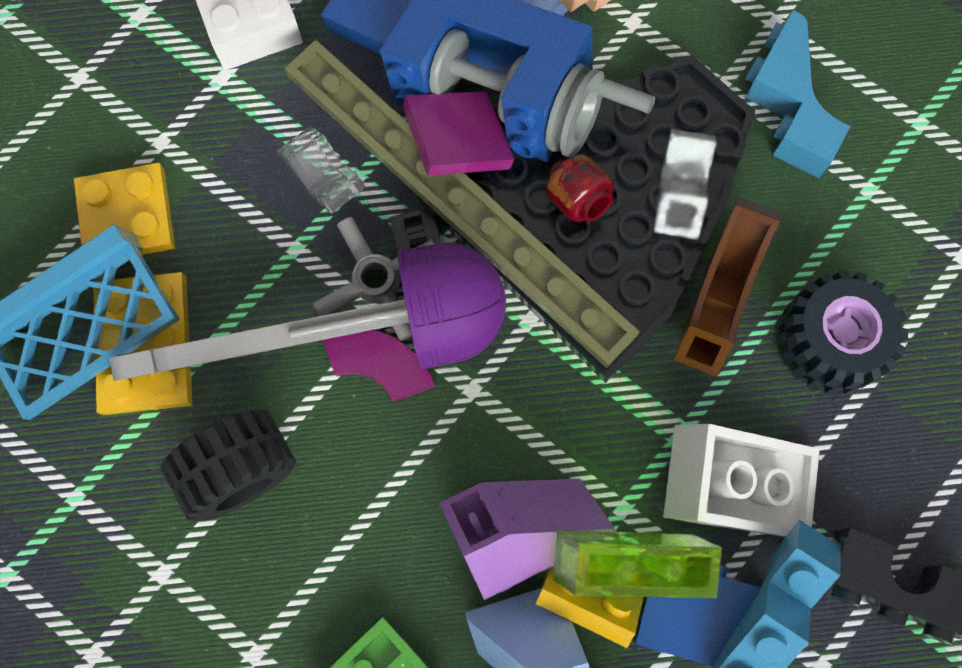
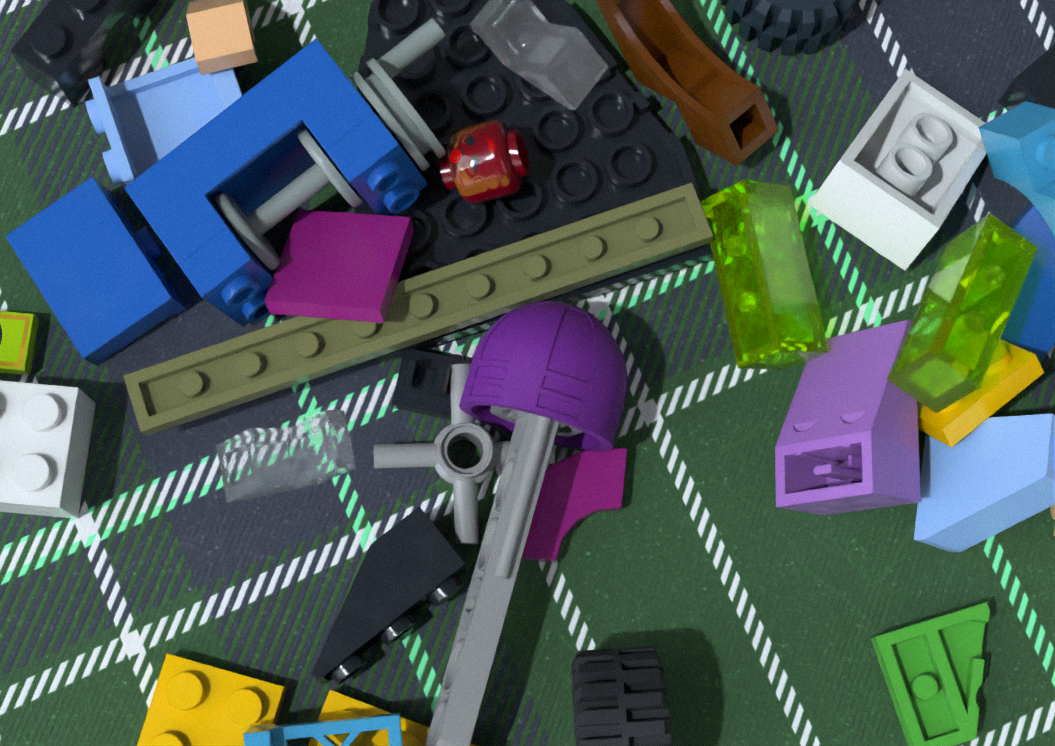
camera: 65 degrees left, 0 degrees up
(268, 275) = (394, 581): none -> black slope
(603, 417) = (764, 276): none -> clear neon green brick

